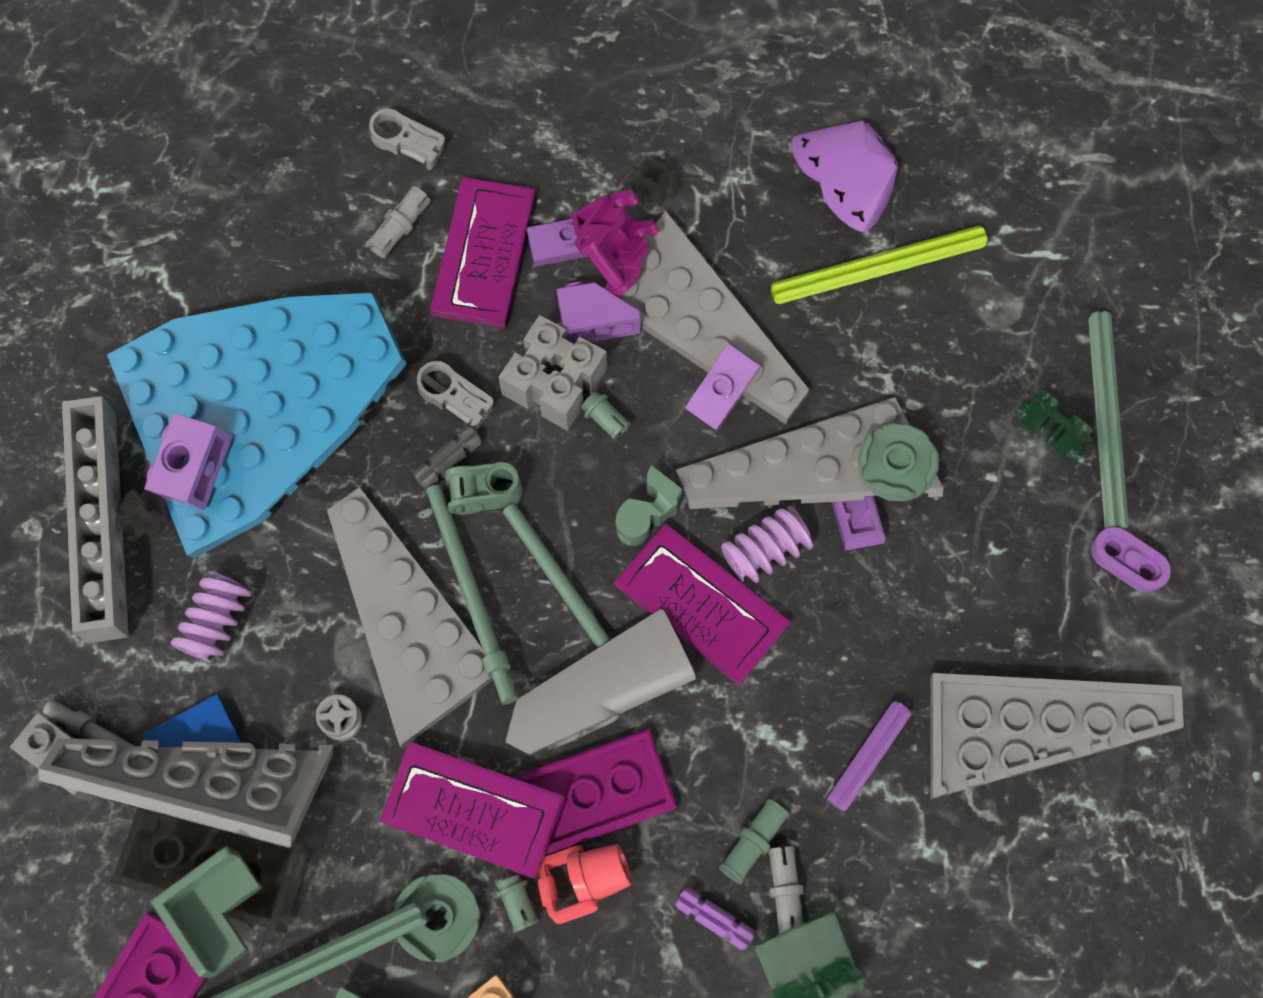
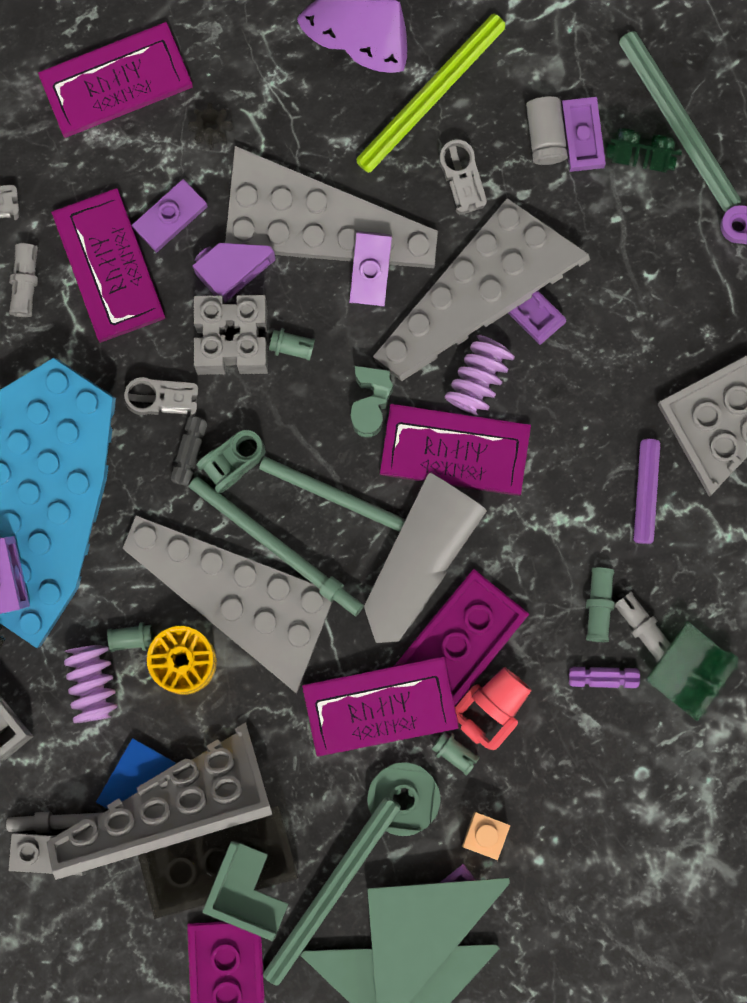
camera: 30 degrees left, 10 degrees up
(287, 601) = (130, 637): none -> sand green pin
(290, 642) = (178, 642): none -> yellow wheel
(333, 712) = (233, 695): light grey wheel -> none
(594, 99) = (115, 80): none -> magenta tile
(613, 239) = (212, 199): magenta piece -> none
(863, 360) = (466, 182): none -> light grey piece
(897, 462) = (542, 254): sand green tile -> none
(970, 356) = (546, 130): none -> light grey piece
(1004, 379) = (583, 134): none -> medium lavender plate

